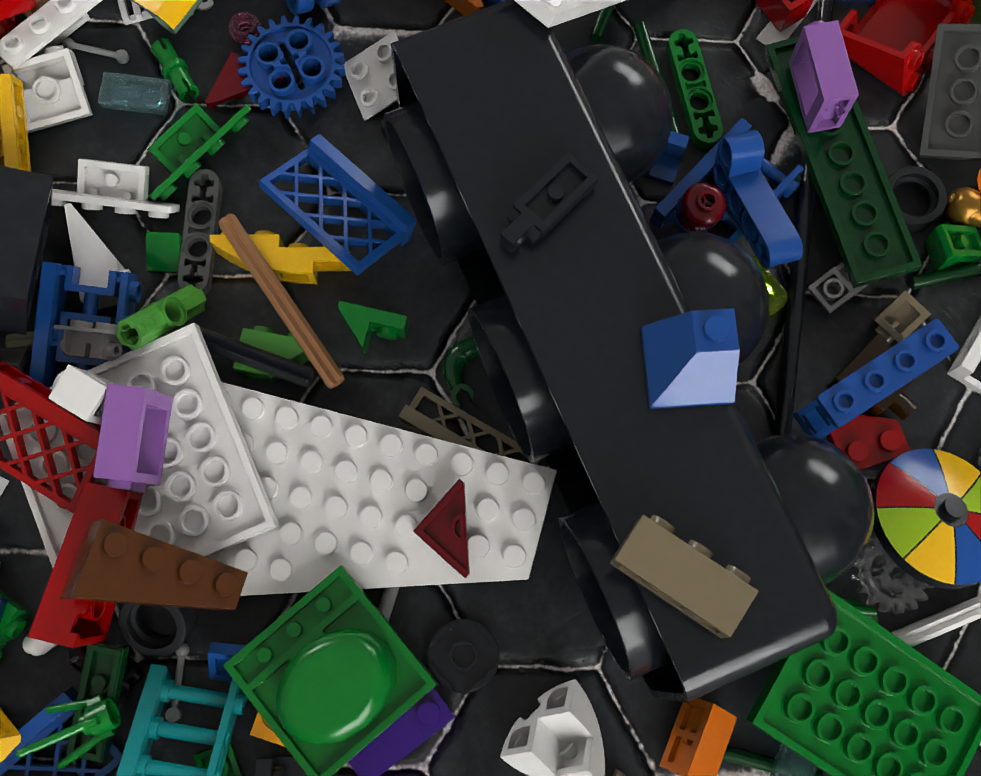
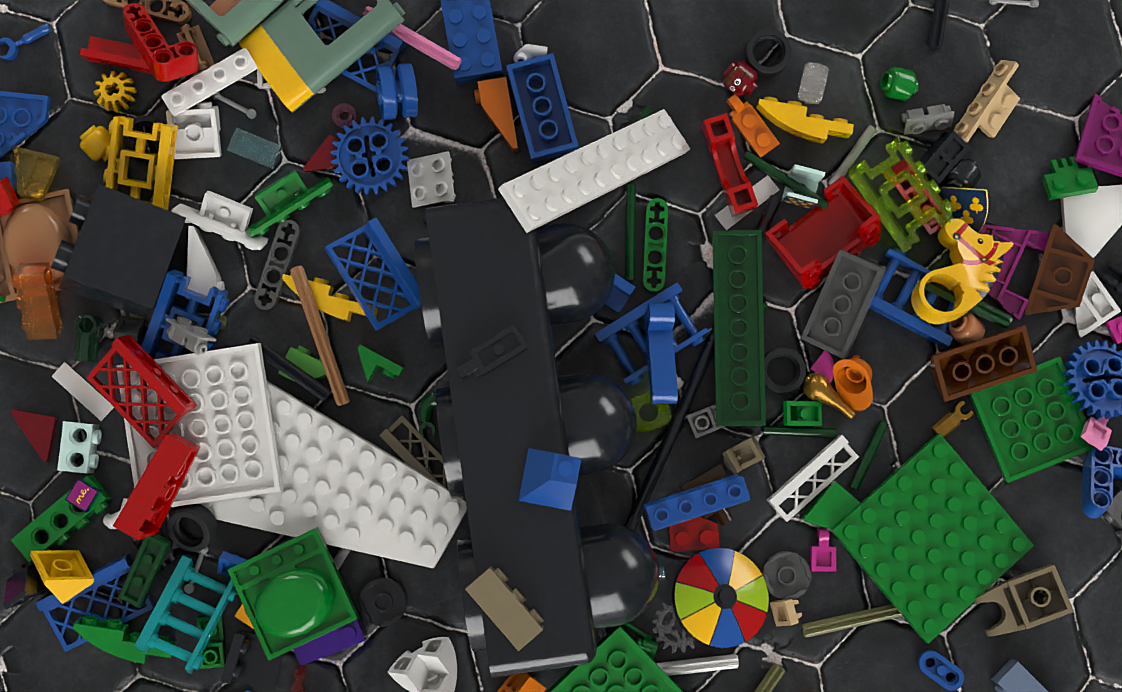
camera: 20 degrees right, 10 degrees up
(80, 393) = (181, 380): white brick -> none
(99, 719) = (143, 582): green plant -> none
(133, 437) = (202, 414): medium lavender window -> none
(141, 570) = (187, 503): reddish brown wedge -> none
(160, 317) = (238, 328): bright green piece -> none
(163, 252) = (249, 274): green slope -> none
(175, 70) = (286, 136): green pin -> none
(446, 529) = (388, 524): dark red tile -> none
(700, 207) = (616, 349): dark red head -> none
(823, 76) = (735, 273): medium lavender window -> none
(960, 177) = (824, 365): none -> dark pink tile

